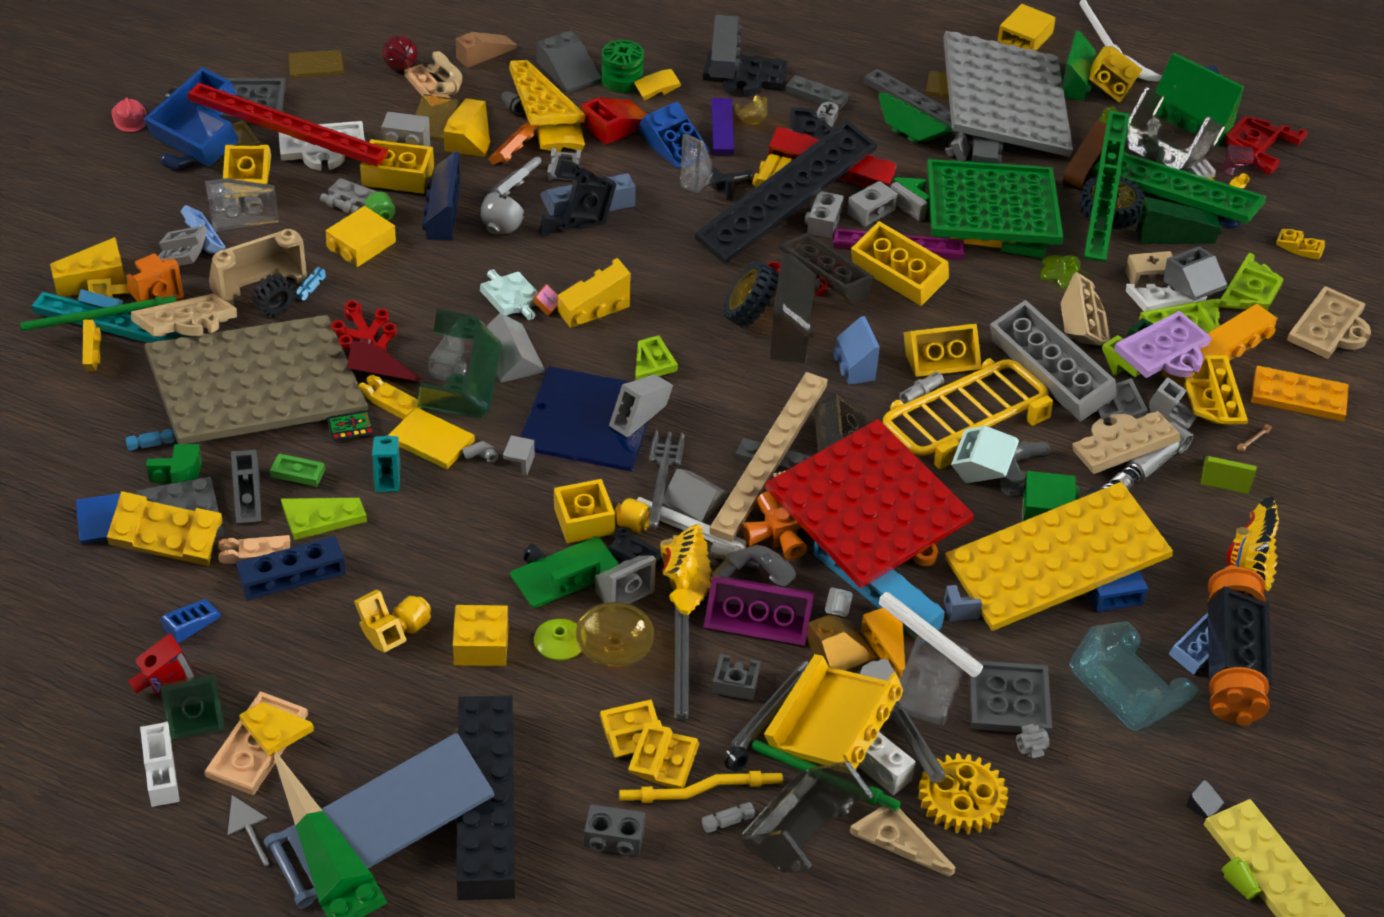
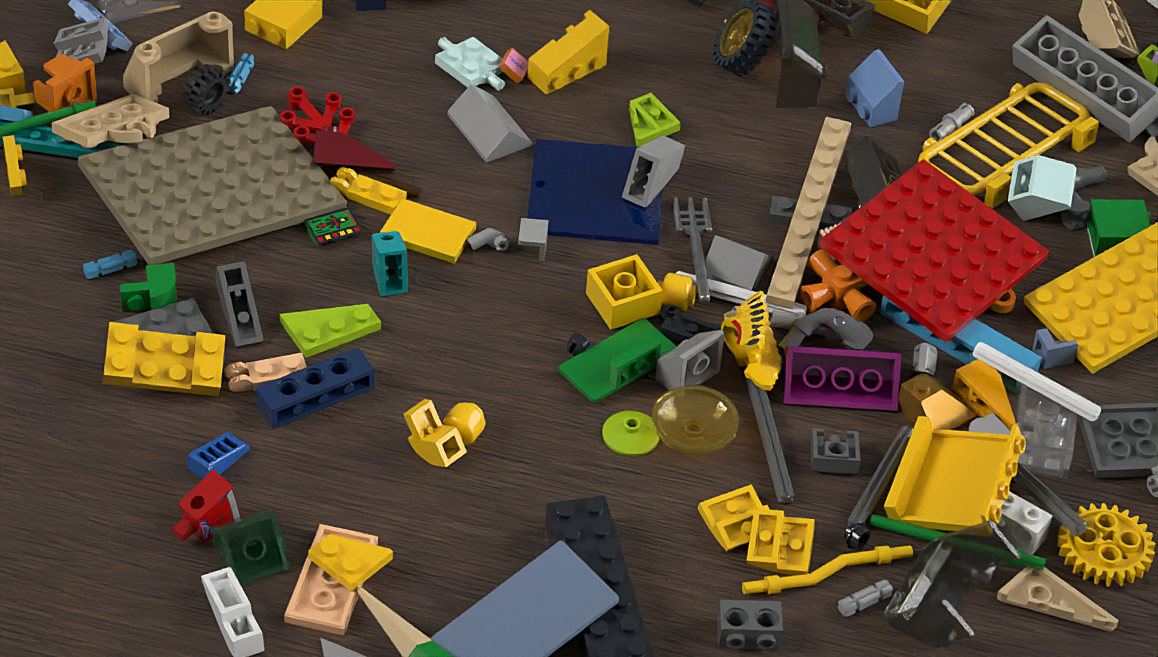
camera: 10 degrees left, 0 degrees up
(95, 517) = (80, 355): blue slope -> none
(297, 470) = (289, 280): bright green plate -> none
(448, 358) = (424, 141): clear slope -> none
(463, 393) = (457, 176): clear green windscreen -> none
(480, 635) = (547, 437): yellow brick -> none
(943, 350) = (965, 78): yellow slope -> none

